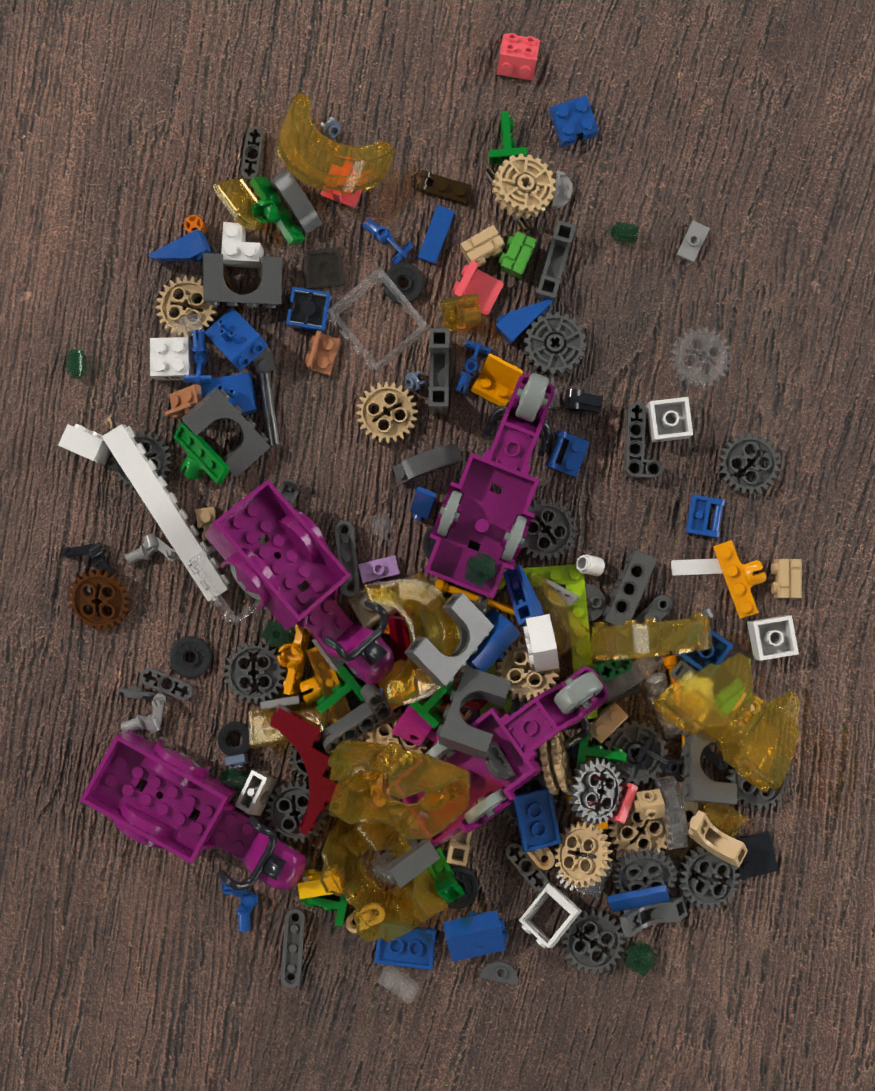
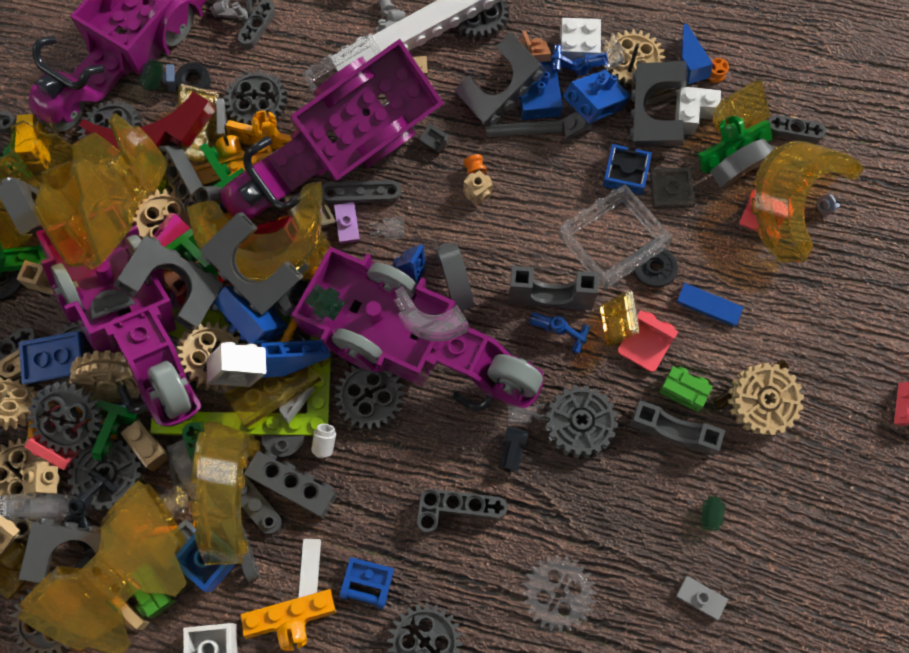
camera: 90 degrees right, 15 degrees down
(199, 648) = (279, 35): black wheel -> none
(200, 457) = (473, 59): green plate -> none
(248, 901) = (29, 79): blue pin -> none
(256, 793) = (134, 91): light grey brick -> none
(270, 634) = (283, 118): clear green brick -> none
(314, 452) = (474, 164): none -> orange wheel
(322, 353) = (580, 181): nougat bracket -> none
(340, 454) = (477, 187): none -> tan brick
(385, 237) = (705, 247): blue pin -> none
(396, 427) = (529, 232): tan gear -> none
(413, 382) = (544, 268): sand blue plate -> none
(444, 187) = (763, 317): dark brown plate -> none
(483, 246) = (695, 351): tan brick -> none
(497, 380) = (542, 350): light orange bracket -> none
(501, 468) = (430, 327): none -> clear arch
(508, 149) = (818, 387): green bracket -> none
(519, 320) = (608, 381): blue slope -> none
(563, 190) = (762, 445): light grey plate -> none
(573, 121) = (846, 465): blue piece -> none
(573, 455) = (451, 434): blue plate -> none
(669, 419) = (484, 545): white brick -> none

